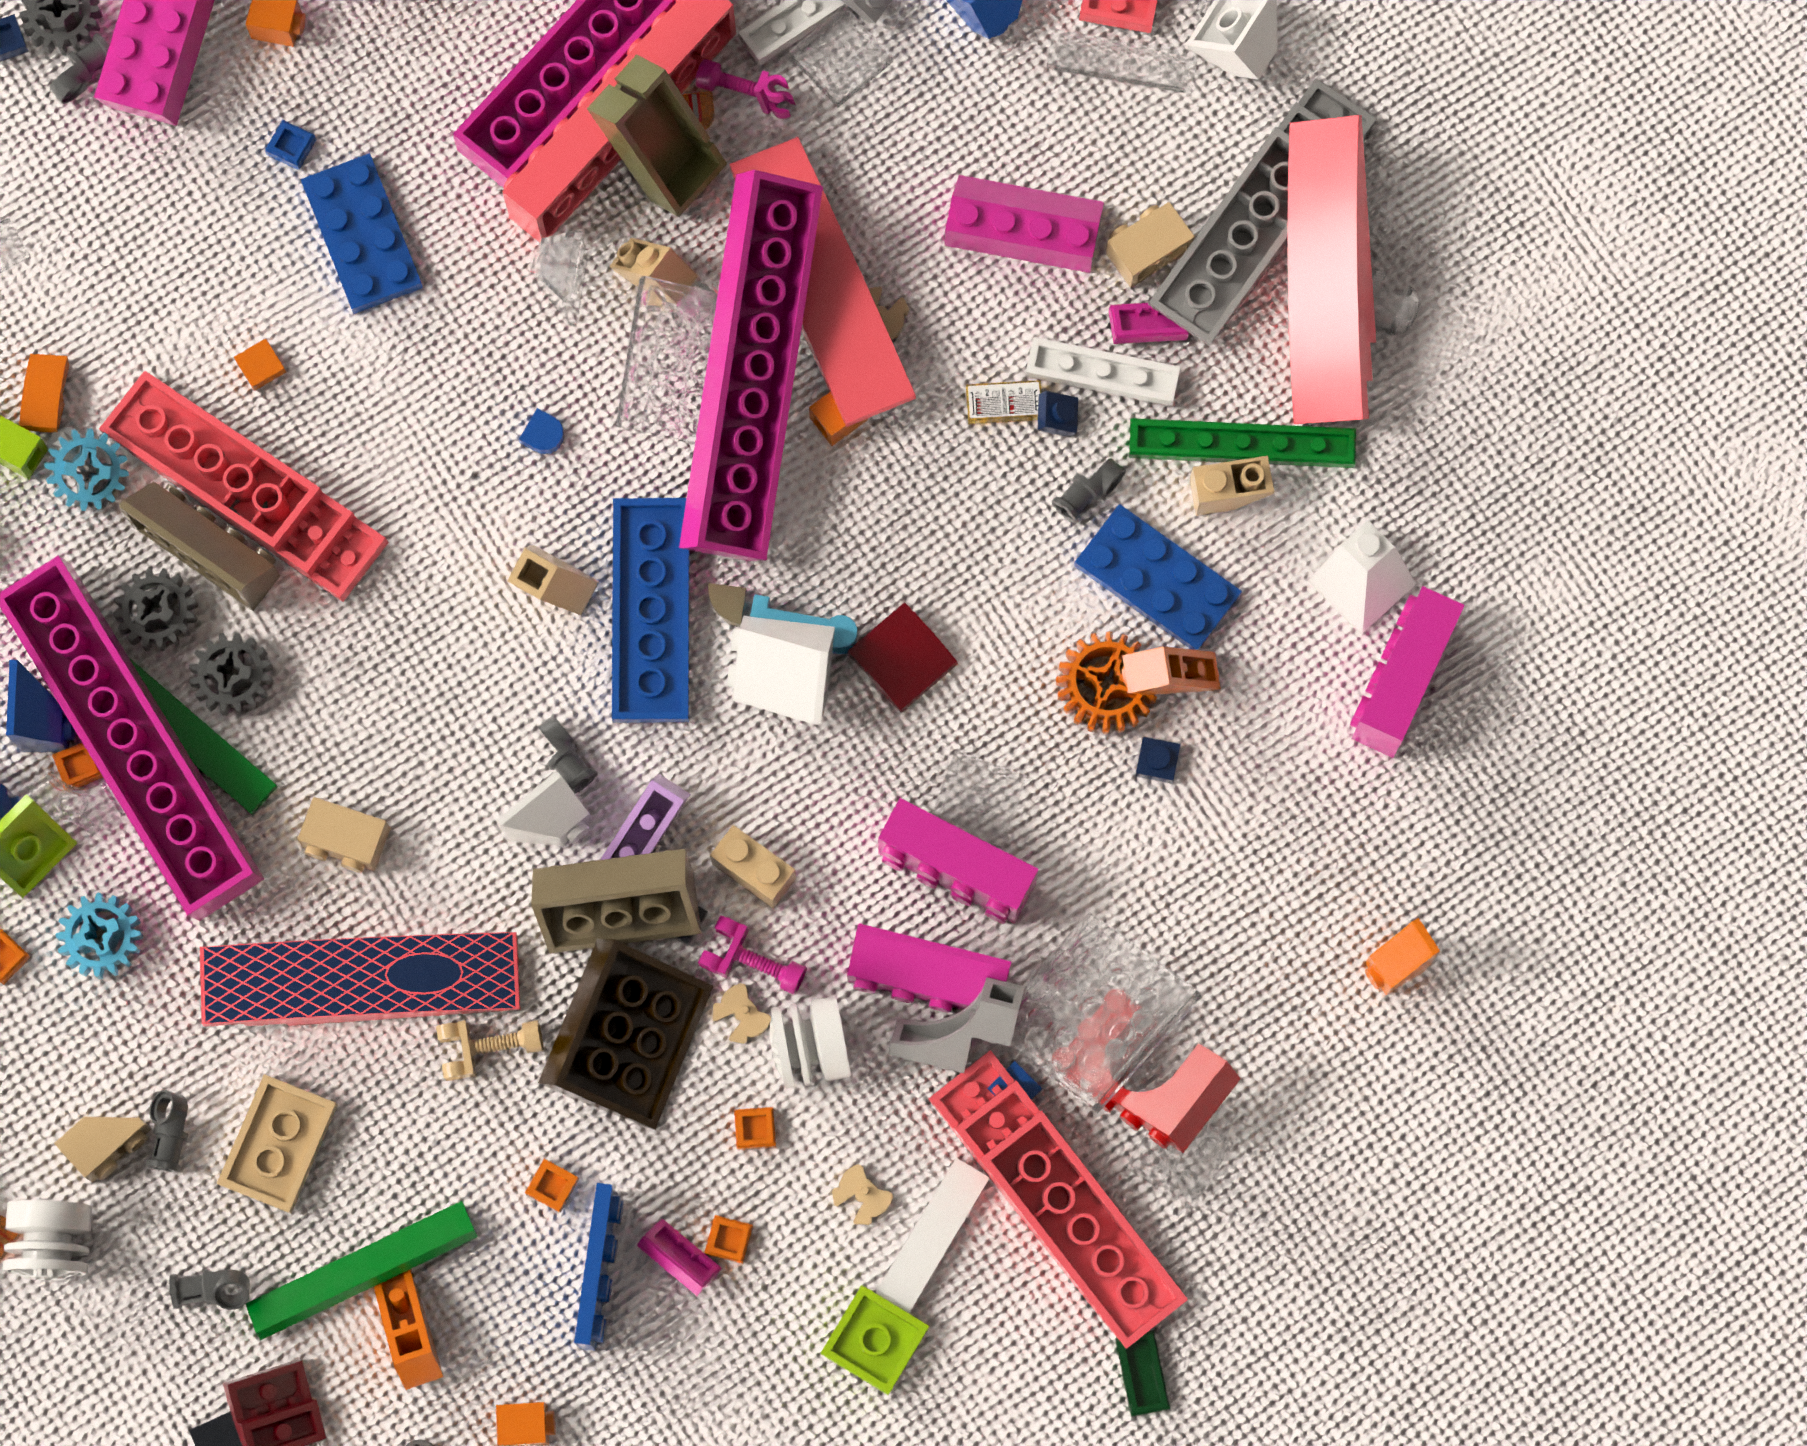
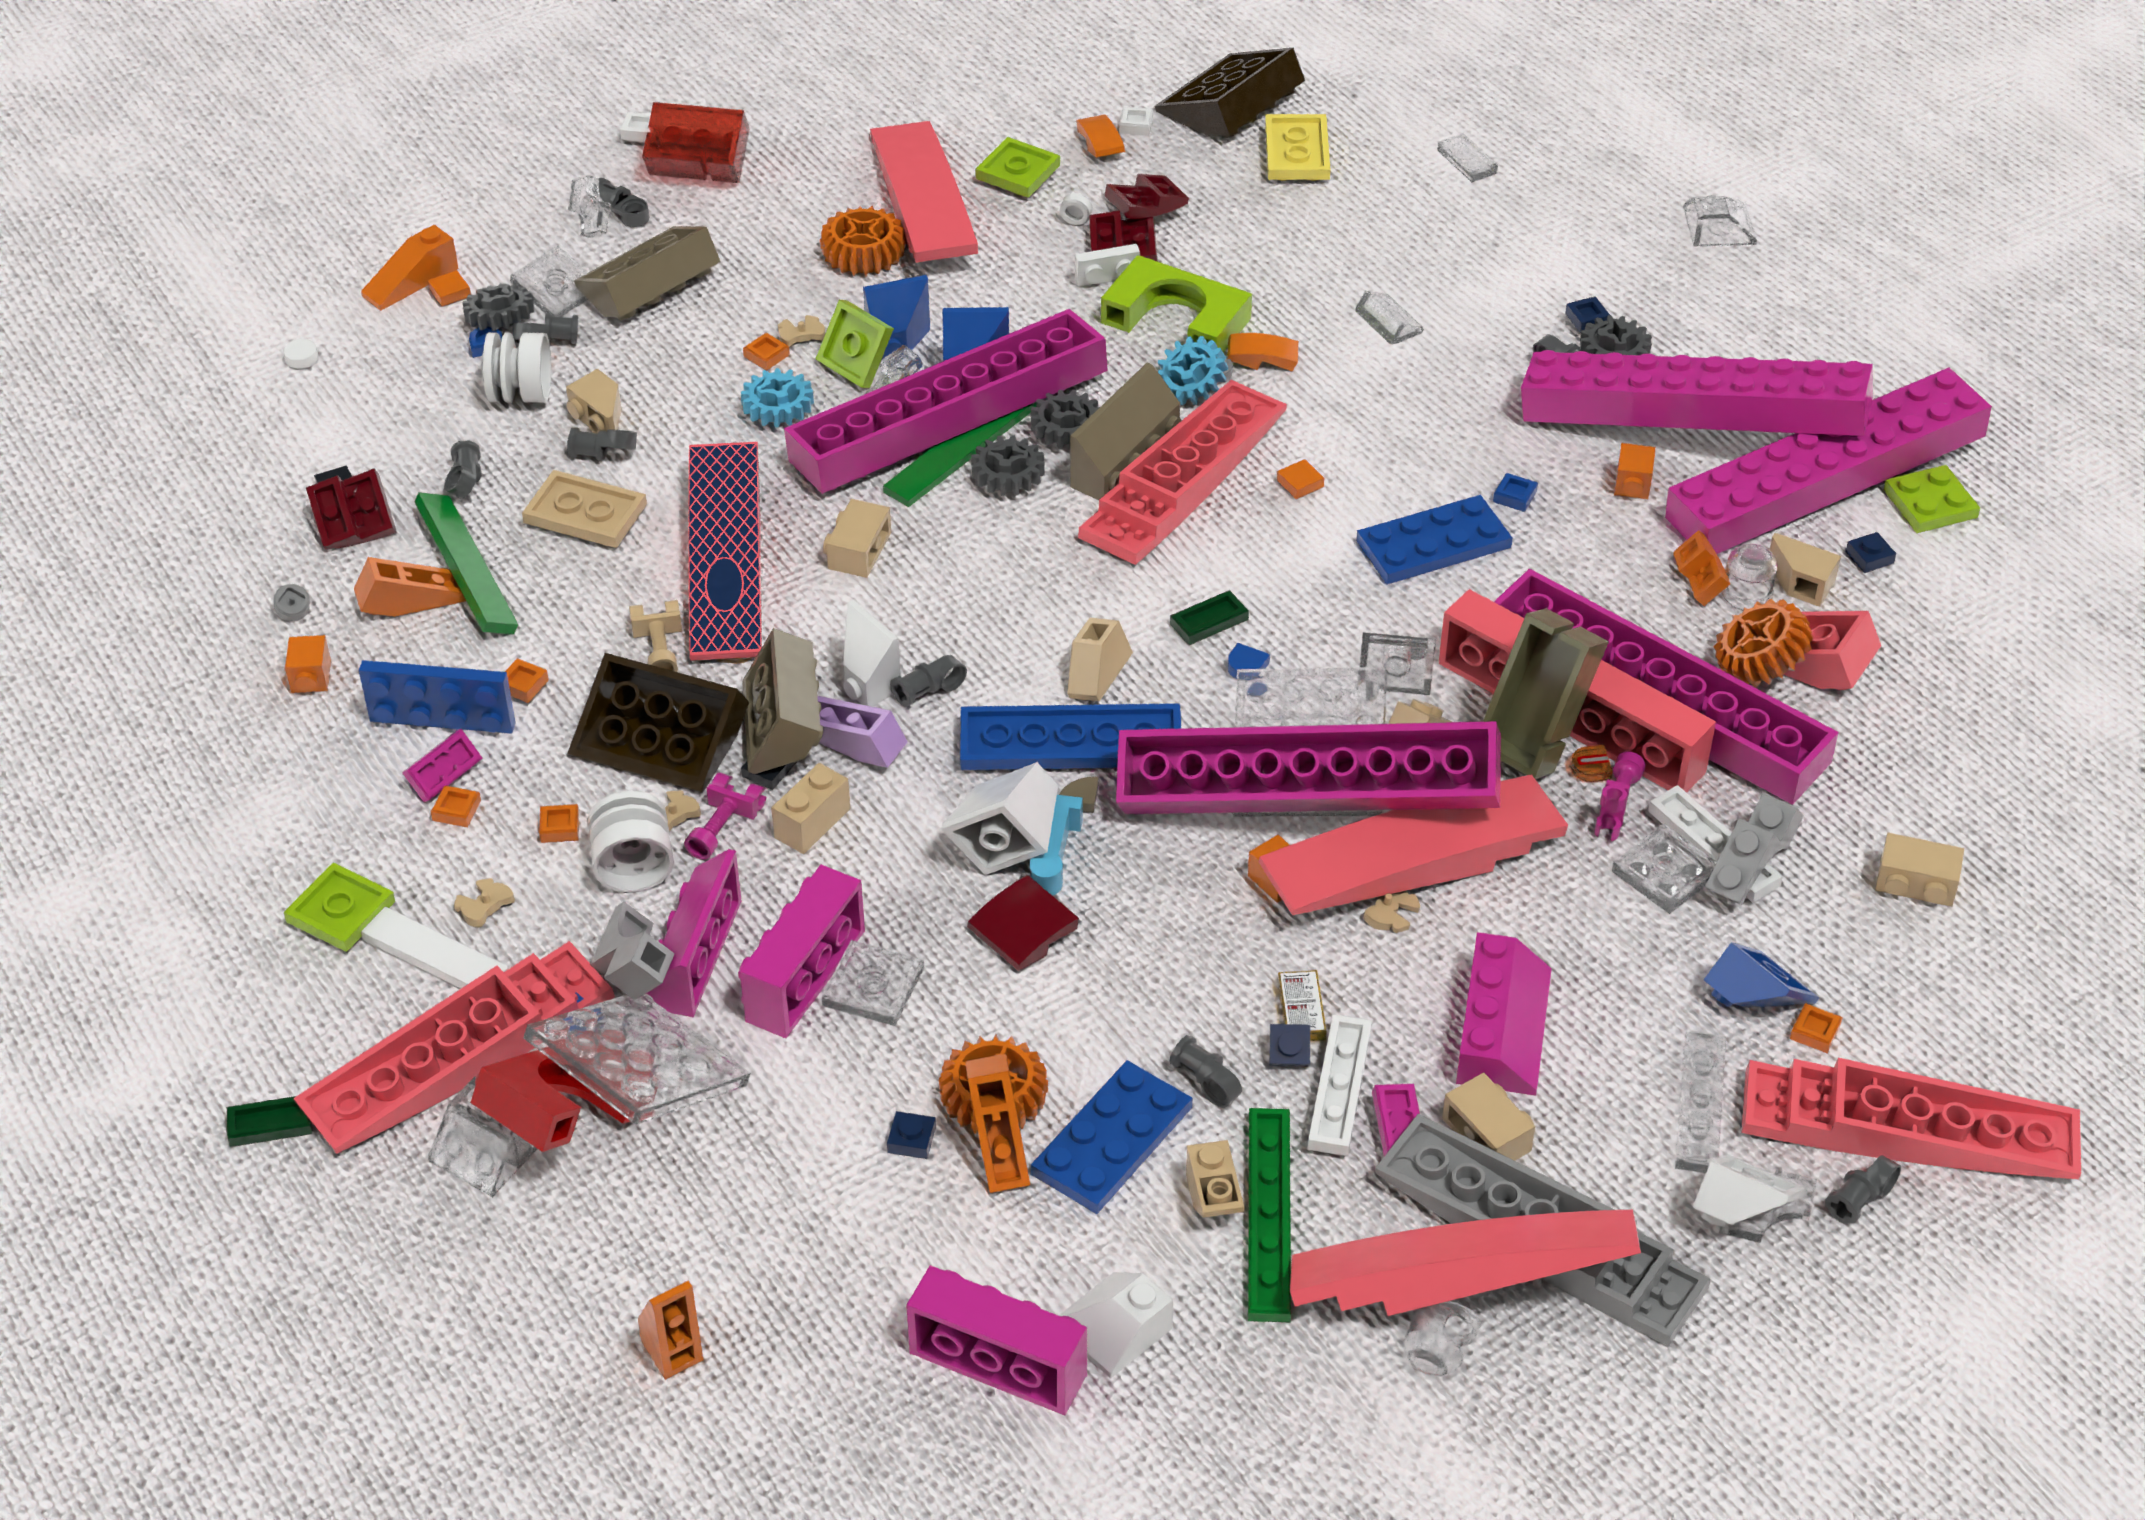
camera: 90 degrees right, 30 degrees down
(472, 468) = (1209, 617): none -> dark green tile

